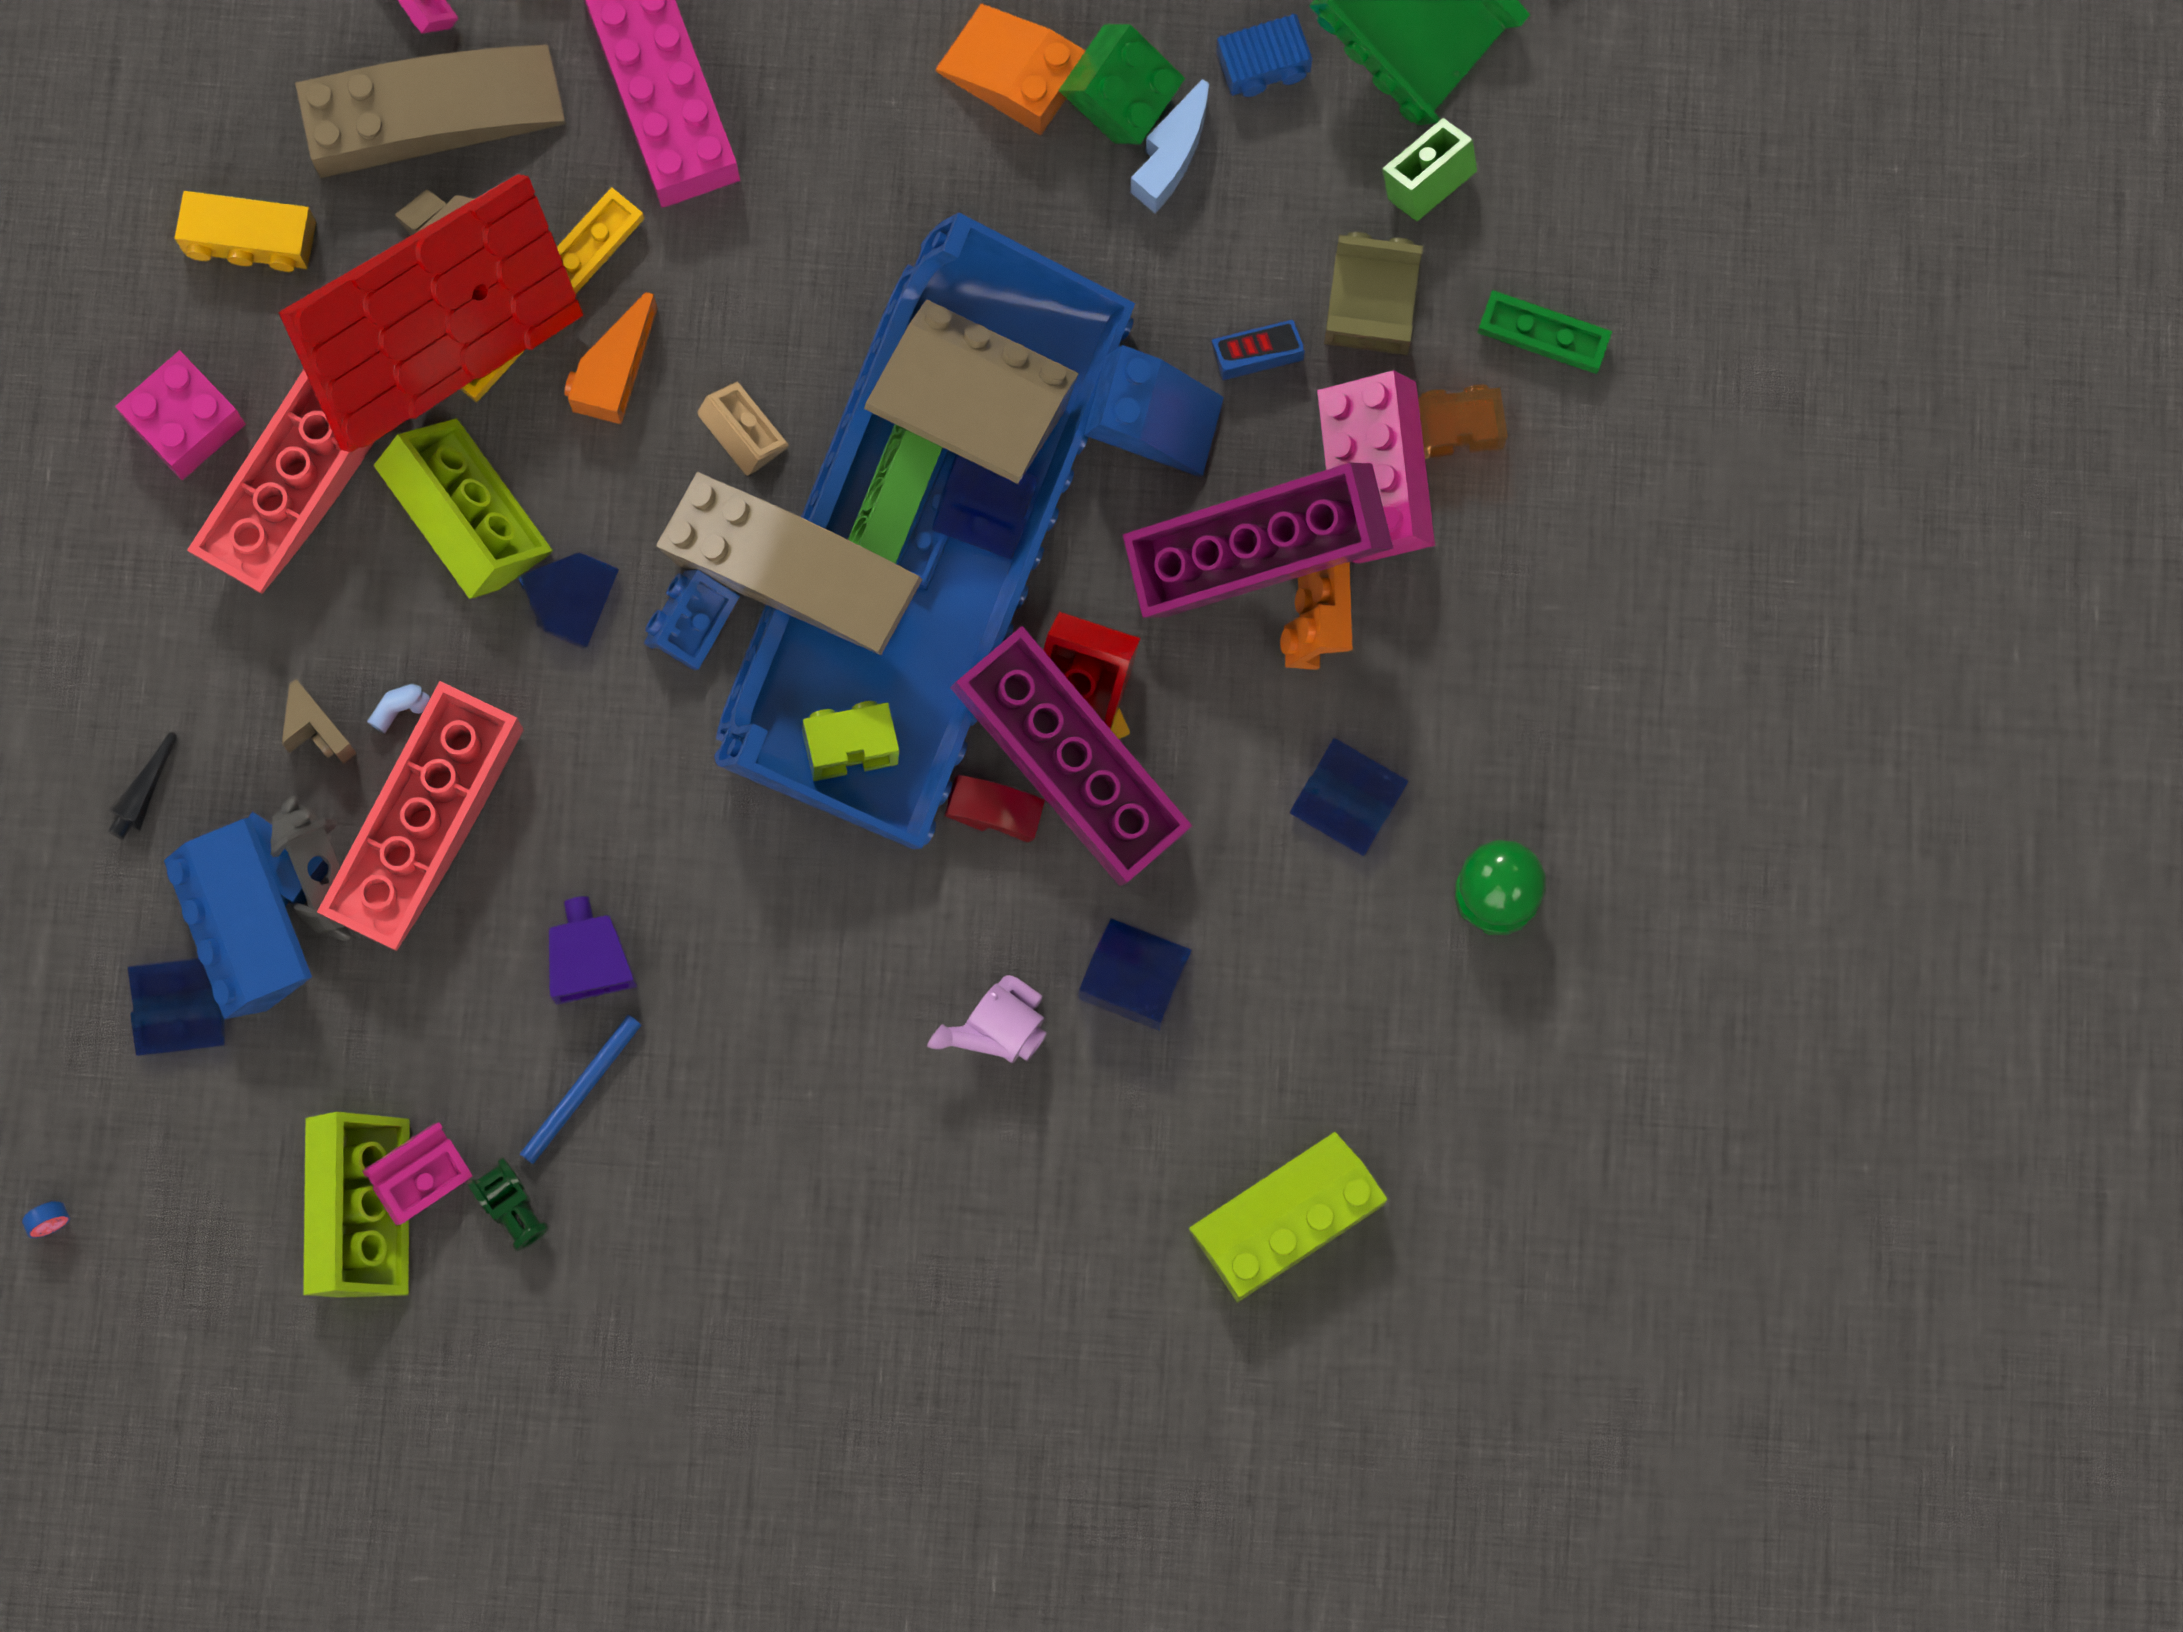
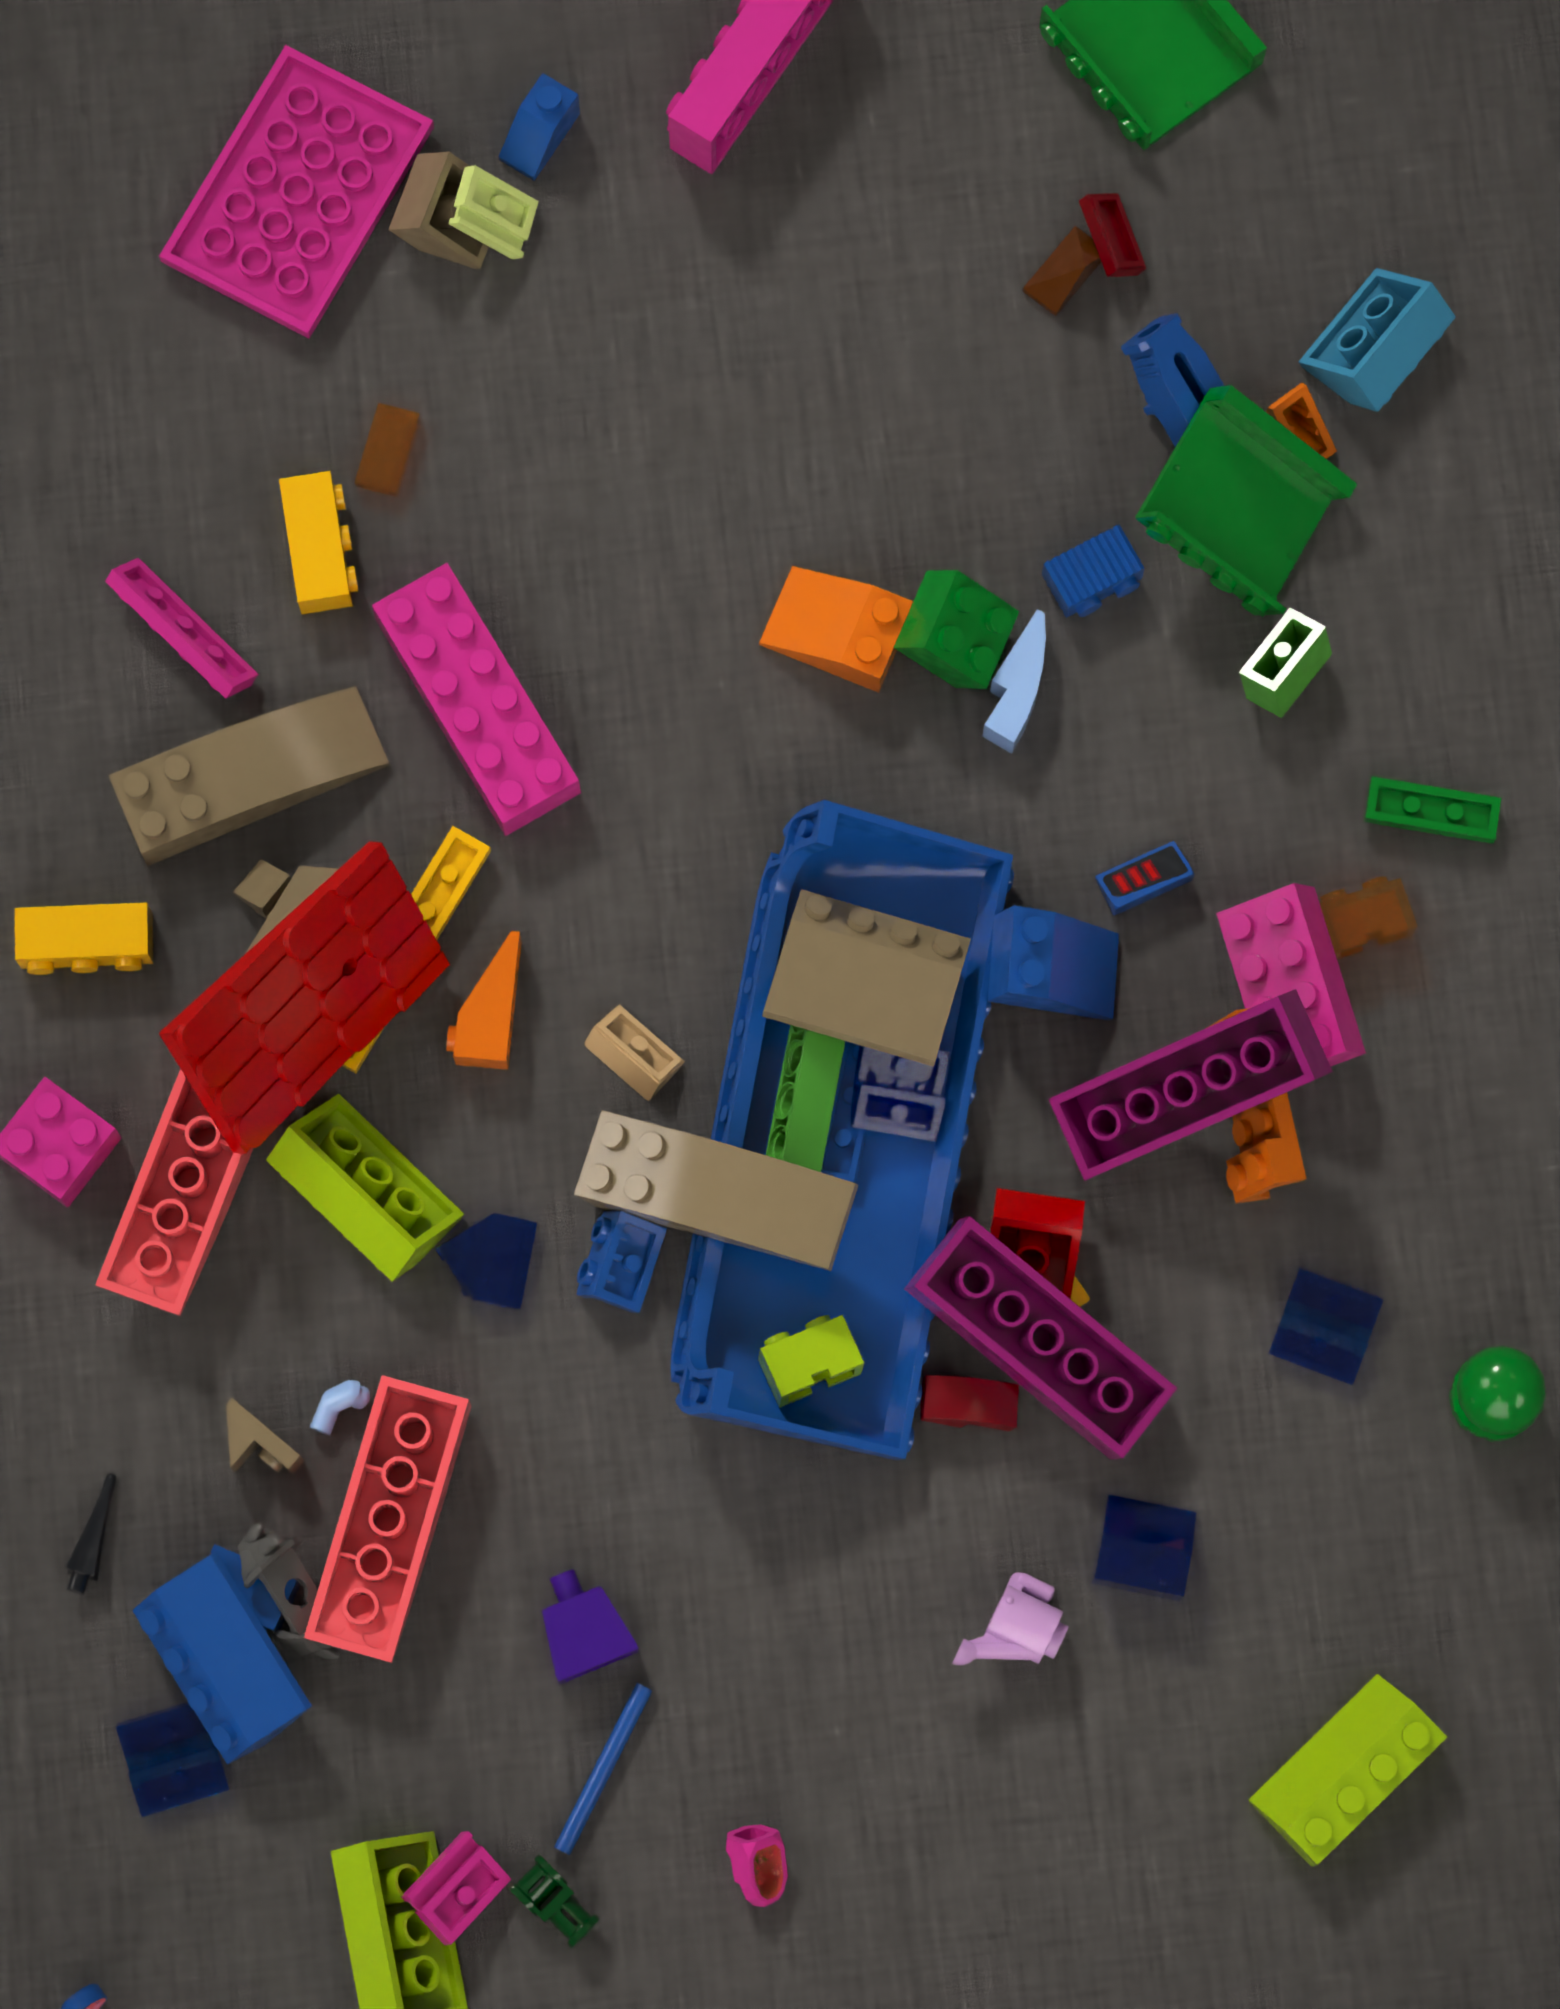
camera: 10 degrees left, 0 degrees up
(708, 1203) = (758, 1863): none -> dark pink rock
(1373, 293) = (1250, 800): olive panel -> none

